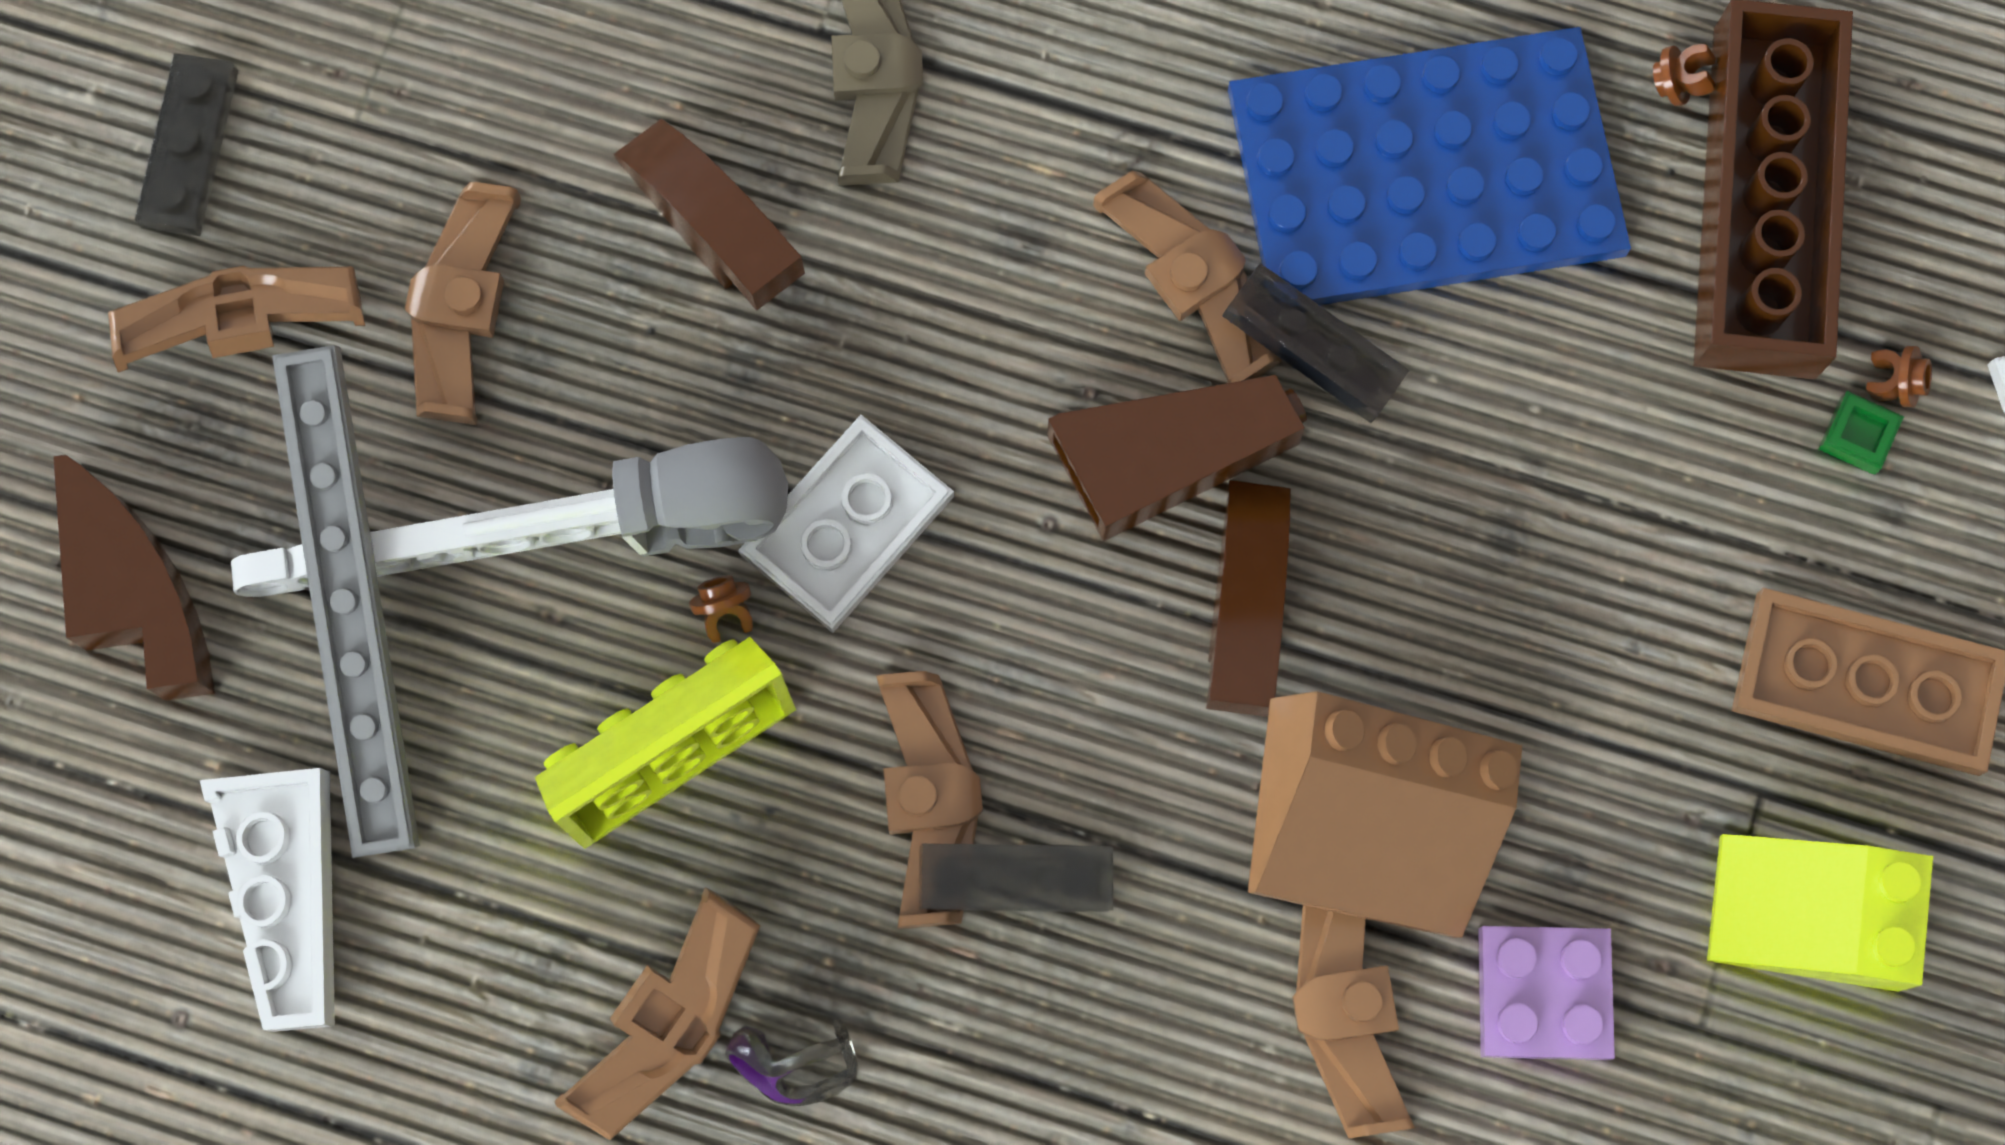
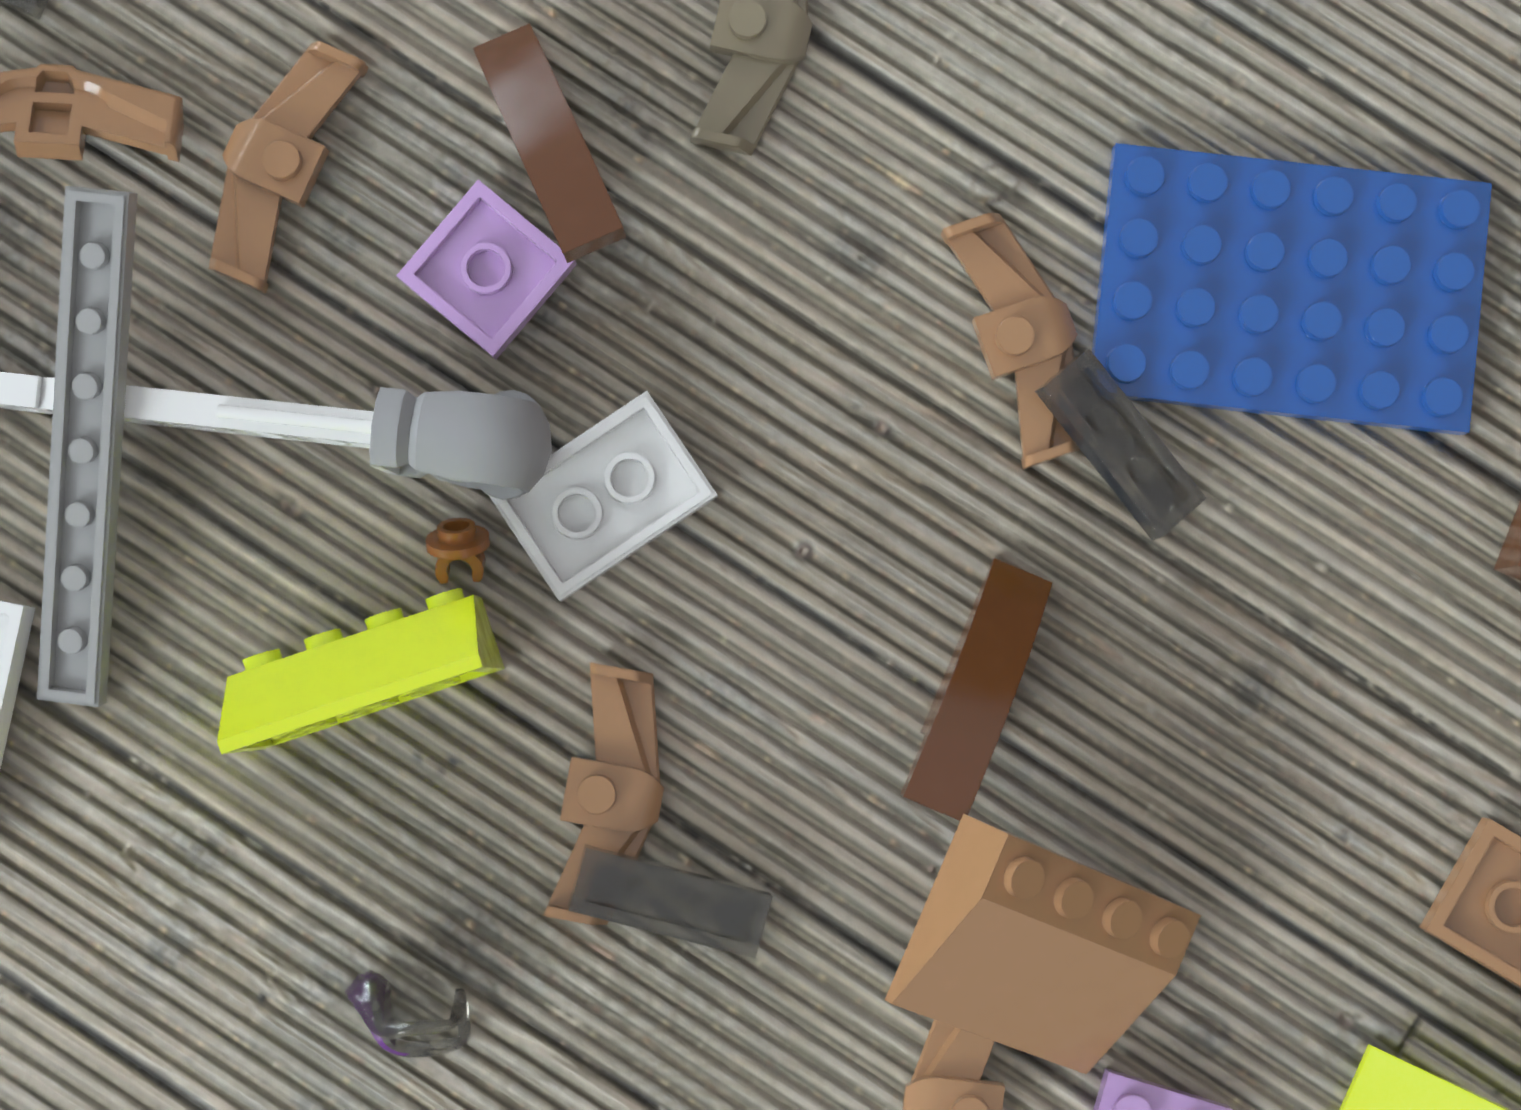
camera: 15 degrees right, 10 degrees up
(668, 1020) = (298, 943): medium nougat plate -> none
(681, 345) = (486, 269): none -> lavender plate
(1170, 447) = (935, 513): reddish brown slope -> none

